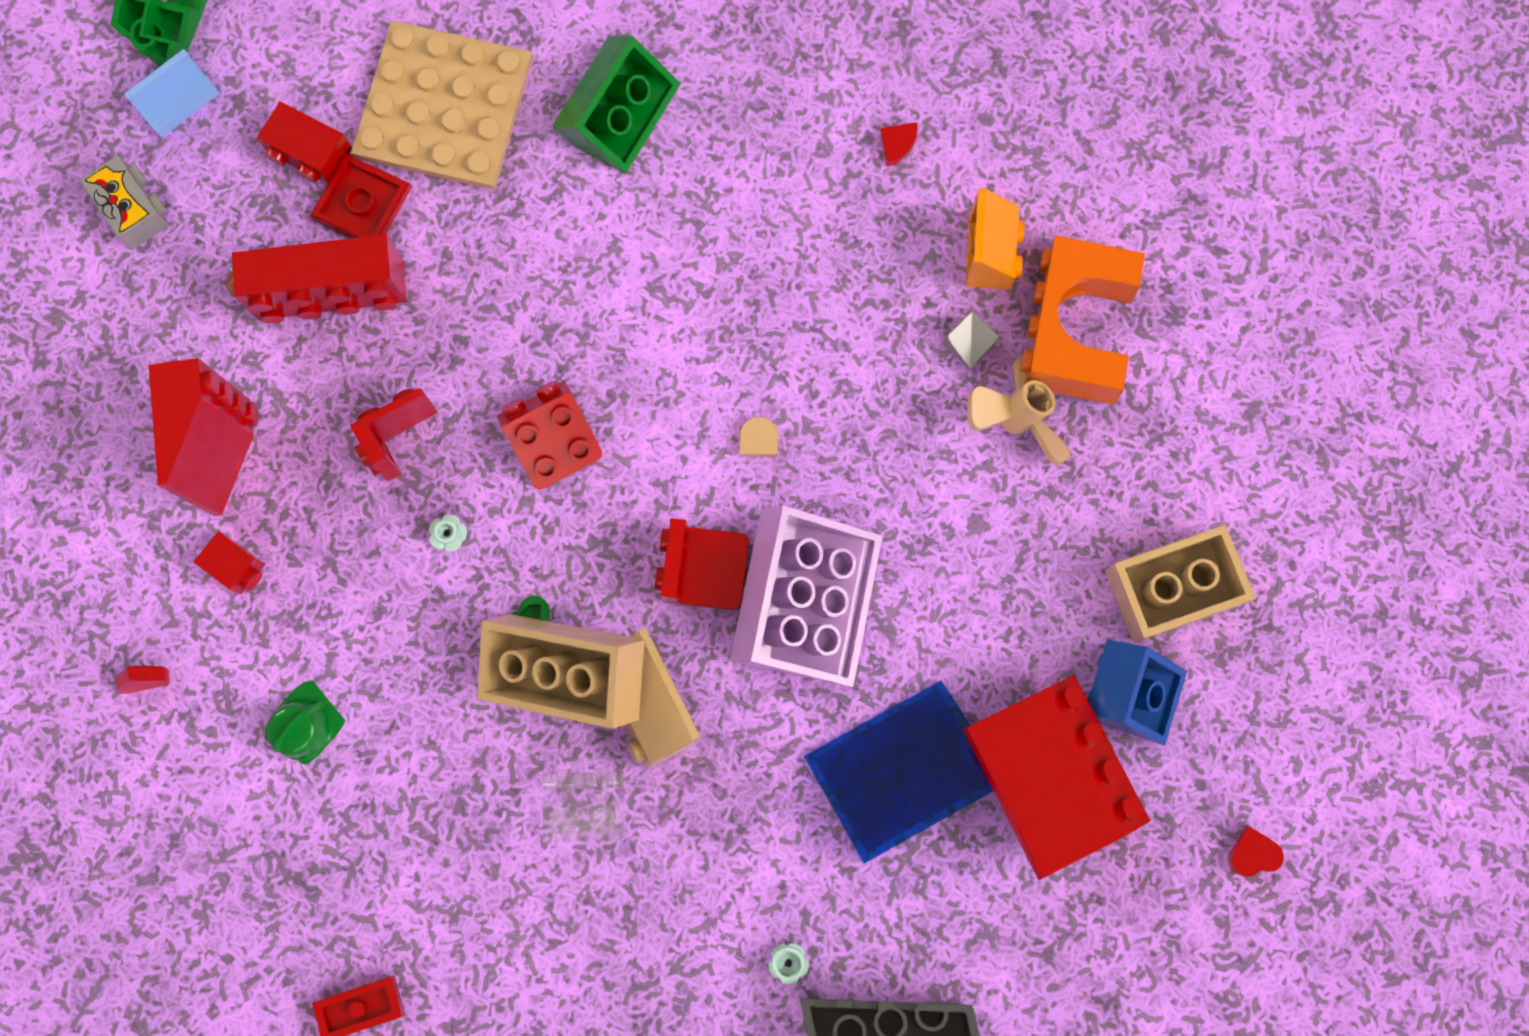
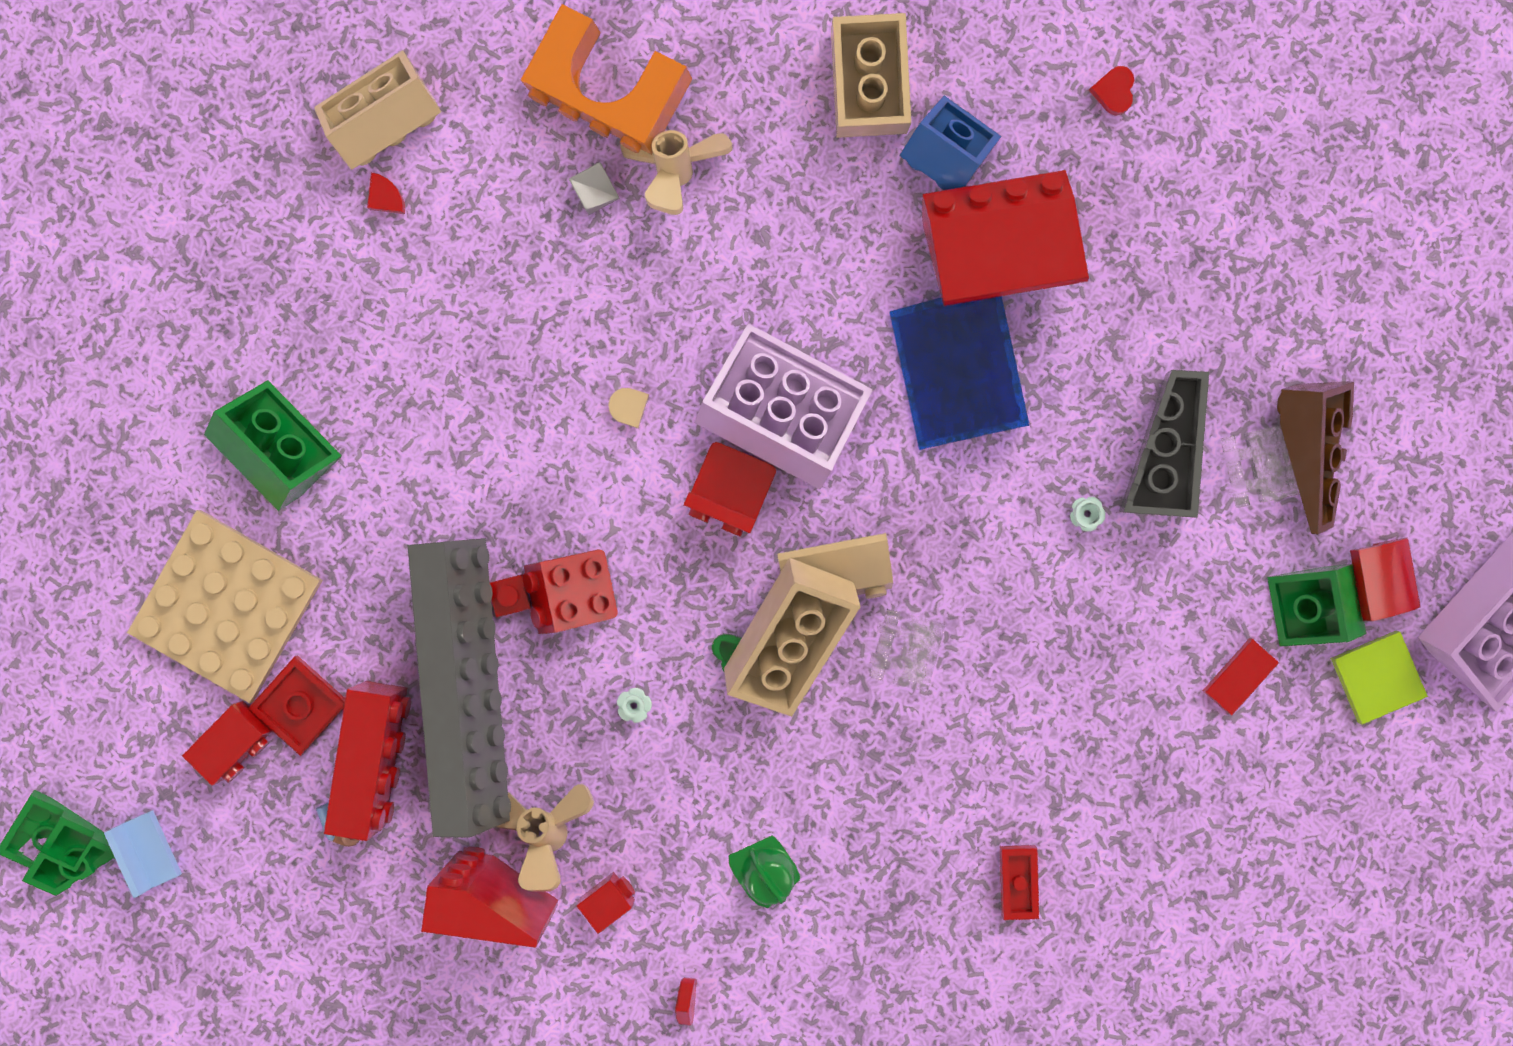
camera: 75 degrees left, 10 degrees up
(125, 202) = (238, 920): light grey brick -> none
(287, 476) = (539, 866): none -> tan piece
(379, 425) = (521, 743): red bracket -> none
(417, 347) = (459, 687): none -> dark grey brick
(528, 374) = (509, 596): none -> red plate
(978, 110) = (377, 110): none -> tan slope
(993, 242) = (510, 139): light orange slope -> none

